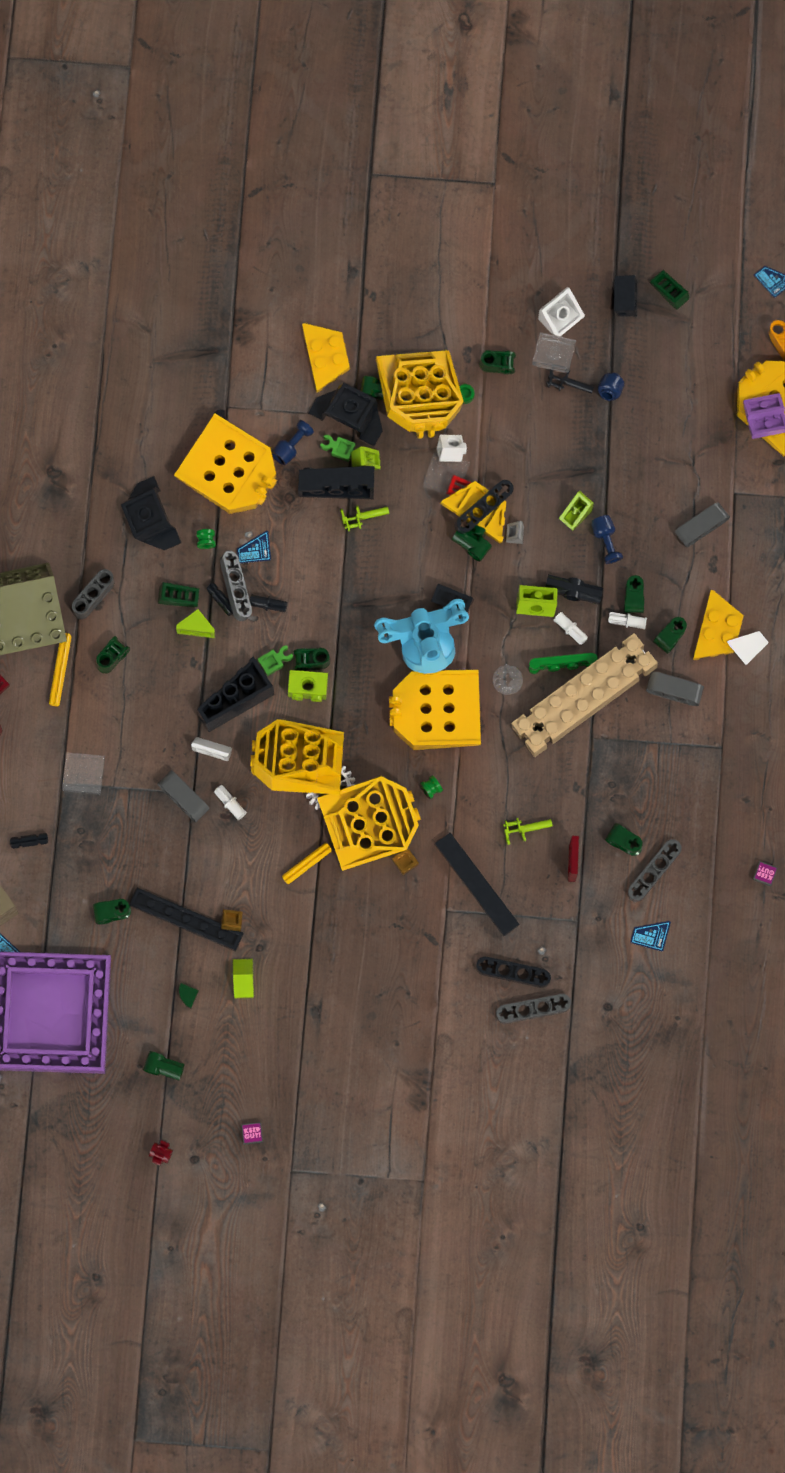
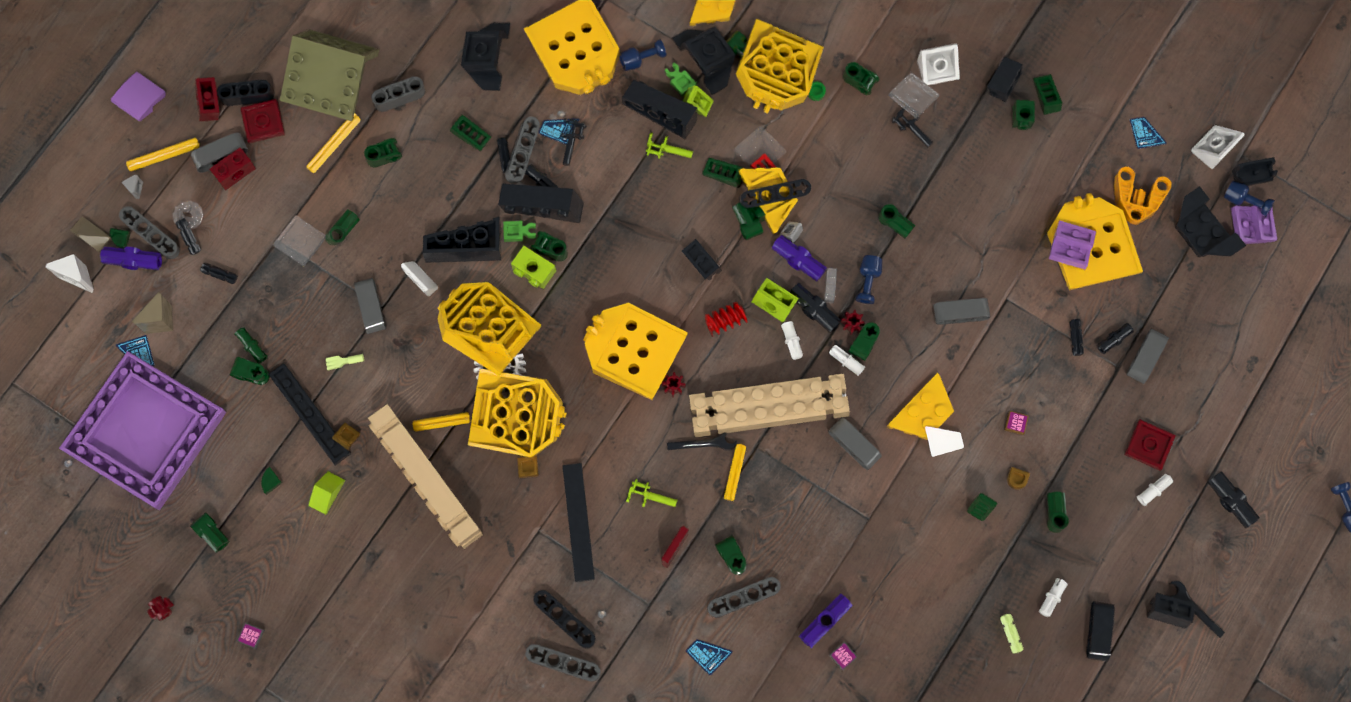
camera: 30 degrees right, 0 degrees up
(98, 887) = (251, 345): none -> dark green pin
(116, 740) = (342, 227): none -> dark green piece
(184, 860) = (337, 362): none -> yellowish green piece
(196, 625) = (468, 165): lime slope -> none
(205, 539) = (521, 97): green wheel -> none
(230, 802) = (407, 333): white axle -> none
(273, 554) = (571, 139): none -> black piece
(281, 623) = (541, 201): none -> black wedge
(324, 916) = (427, 480): none -> tan brick
(425, 636) = (657, 278): medium azure piece -> none
(426, 517) = (736, 182): none -> dark green slope
(431, 787) = (587, 413): green wheel -> none
(451, 448) = (776, 129): white brick -> none
(494, 725) = (673, 390): none -> dark red gear
(500, 684) = (714, 363): clear gear -> none
(501, 639) = (725, 318): none -> red piece
(535, 552) = (799, 258): none -> dark purple piece
(557, 750) = (718, 442): none -> black piece
(566, 661) = (760, 363): green plate -> none
(576, 562) = (830, 285): none -> clear beam
(577, 510) = (856, 240): lime slope -> none
(586, 769) = (735, 472): none -> yellow axle
(603, 474) = (898, 222): none -> dark green piece
(611, 386) = (947, 149): dark blue head -> none
(617, 580) = (848, 324): none -> dark red gear
(659, 312) = (1023, 107): none -> dark green brick
(669, 636) = (875, 395): dark green piece -> none
(732, 863) = (816, 629): none -> dark purple piece

